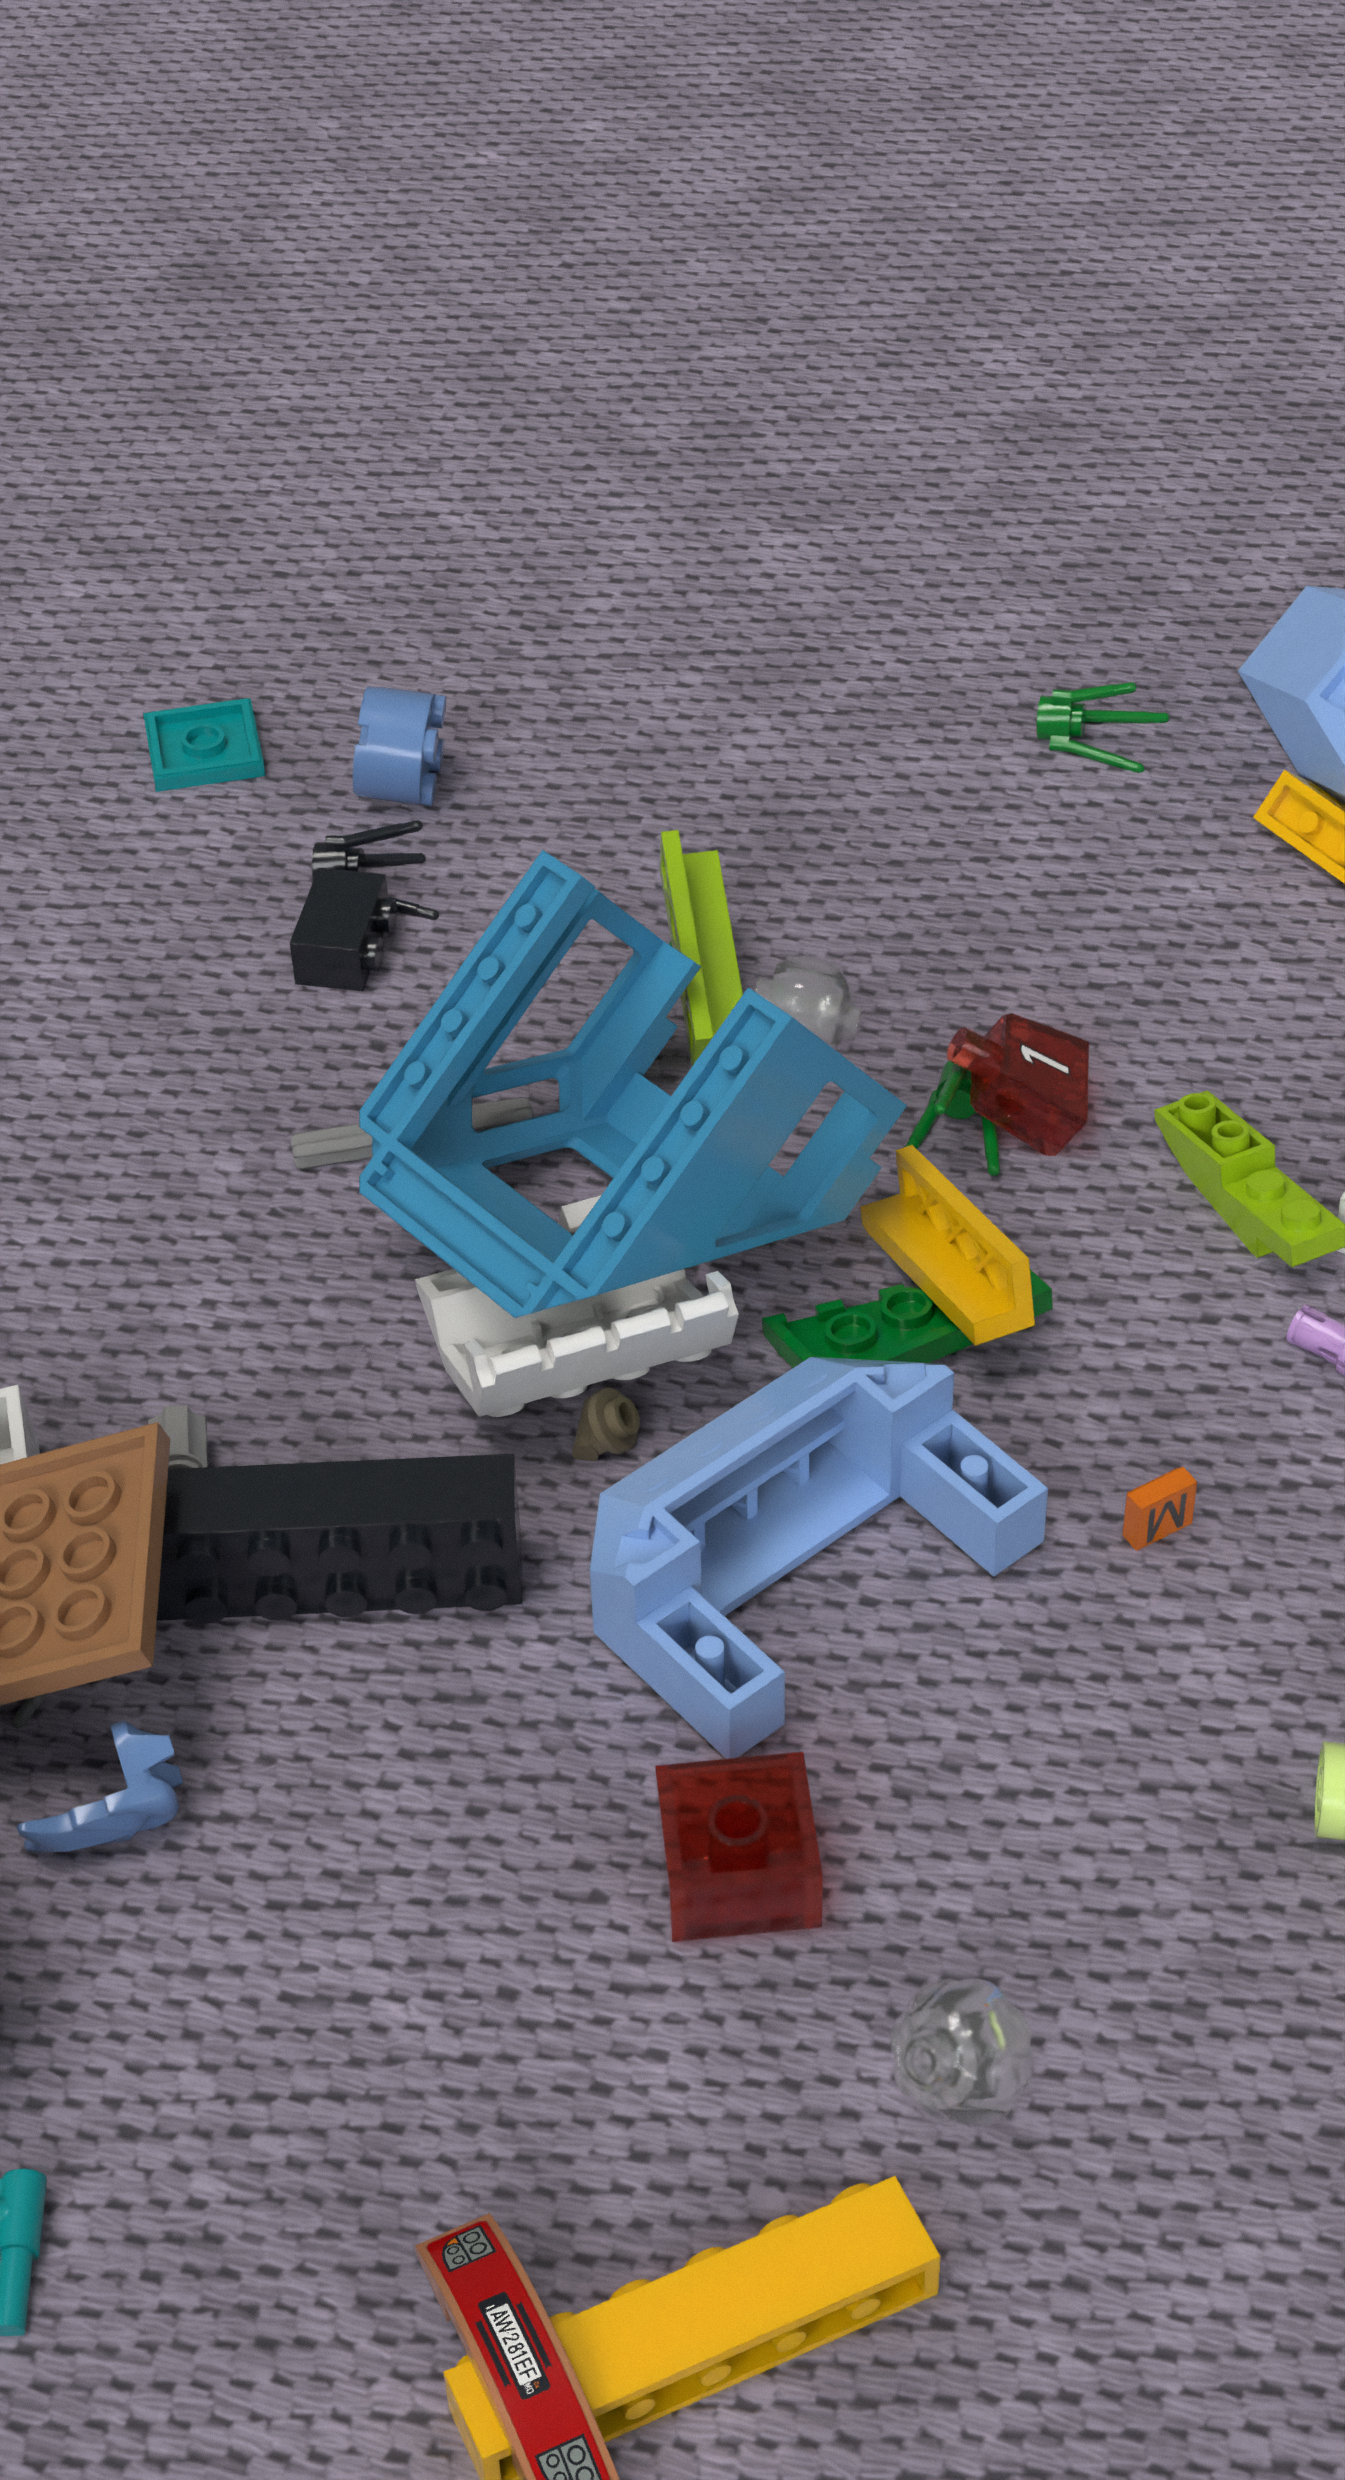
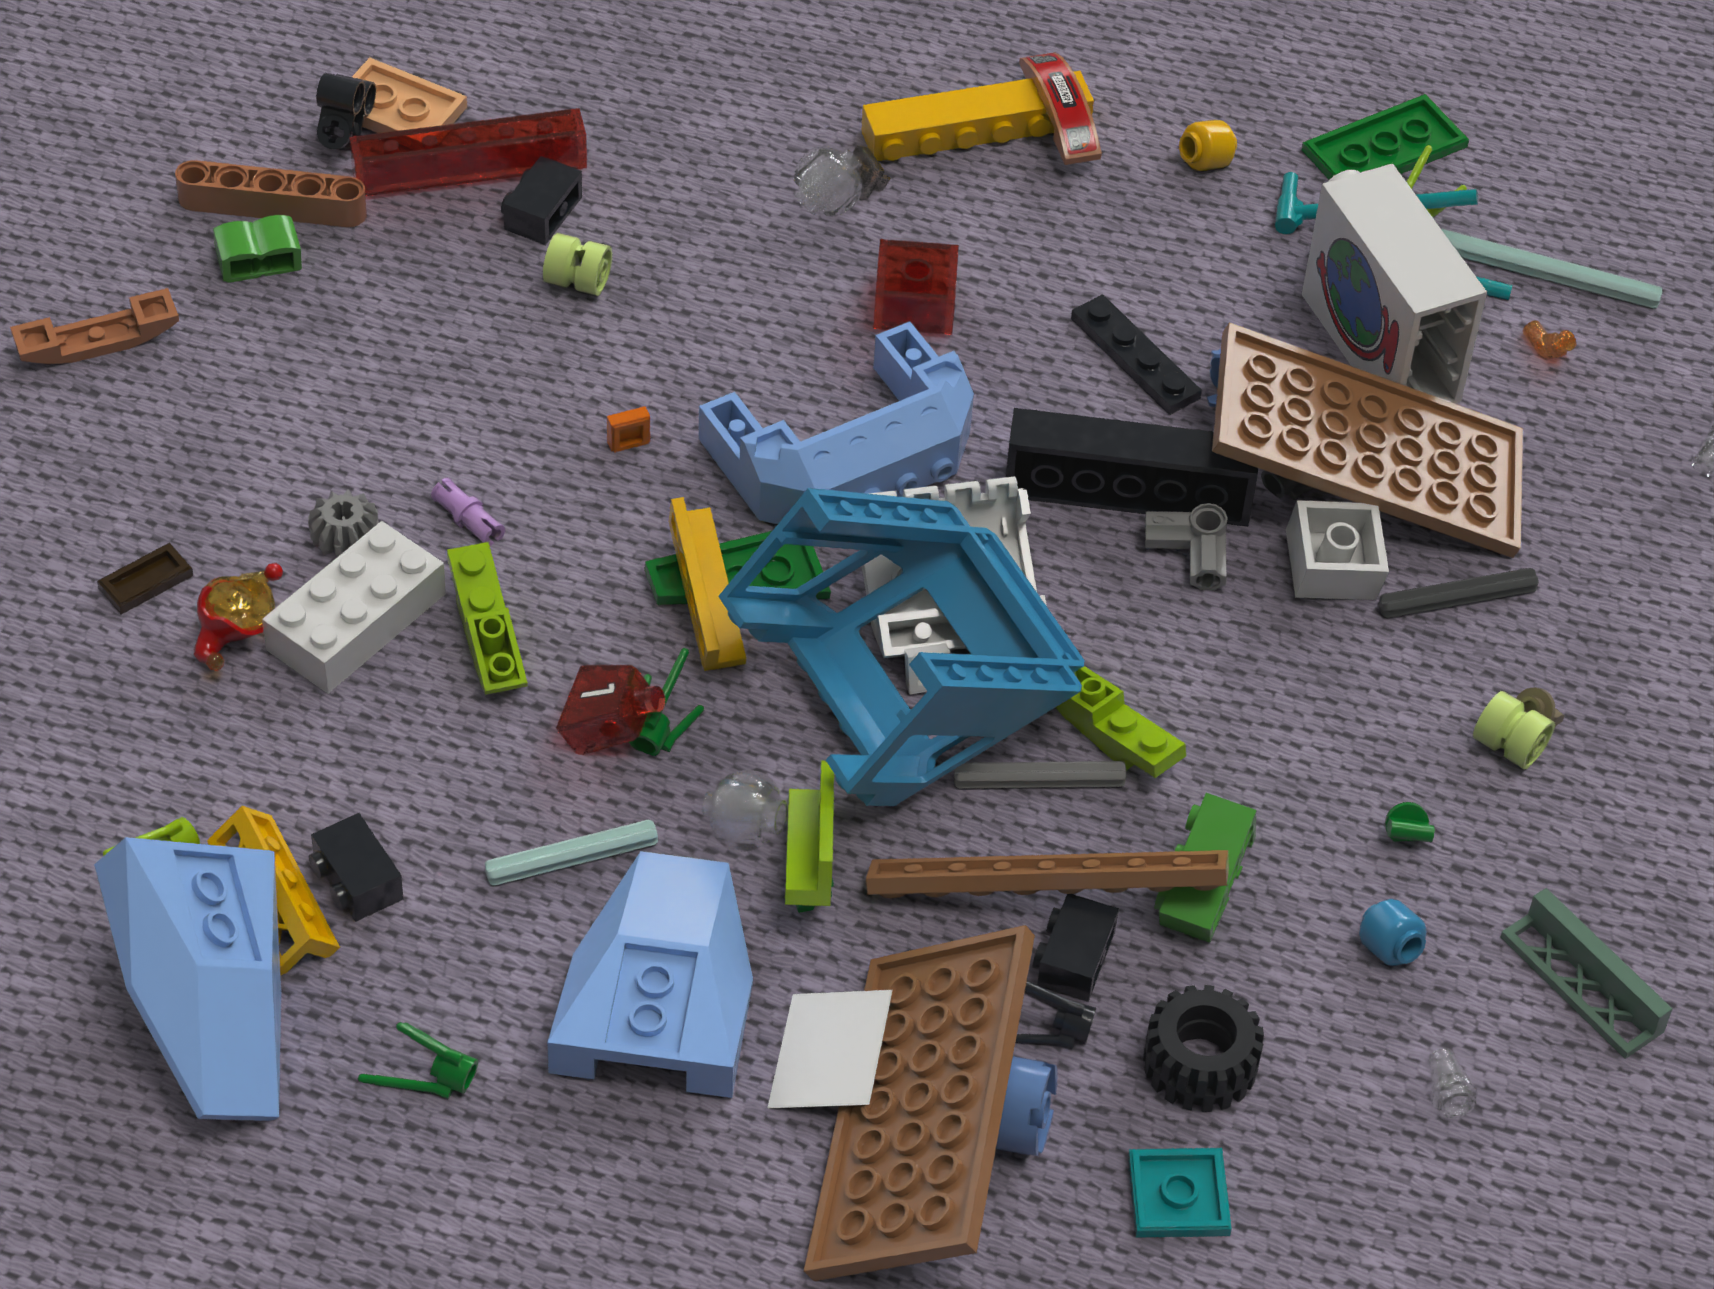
camera: 175 degrees left, 5 degrees up
(167, 1030) = (1213, 826): none -> bright green wedge
(177, 841) = (1195, 1076): none -> black tyre
(186, 2348) = (1208, 145): none -> yellow head
(310, 1195) = (1118, 729): none -> lime slope
(318, 1837) = (1136, 354): none -> black plate
(349, 951) = (1048, 872): none -> medium nougat plate
(504, 708) = (918, 1160): none -> medium nougat plate
(627, 792) = (830, 1049): none -> white sticker
(853, 820) = (659, 978): none -> light blue wedge
(902, 2128) = (871, 172): none -> clear smoke tile
(1013, 951) = (571, 852): none -> light aqua axle
(1273, 878) = (356, 867): none -> black brick

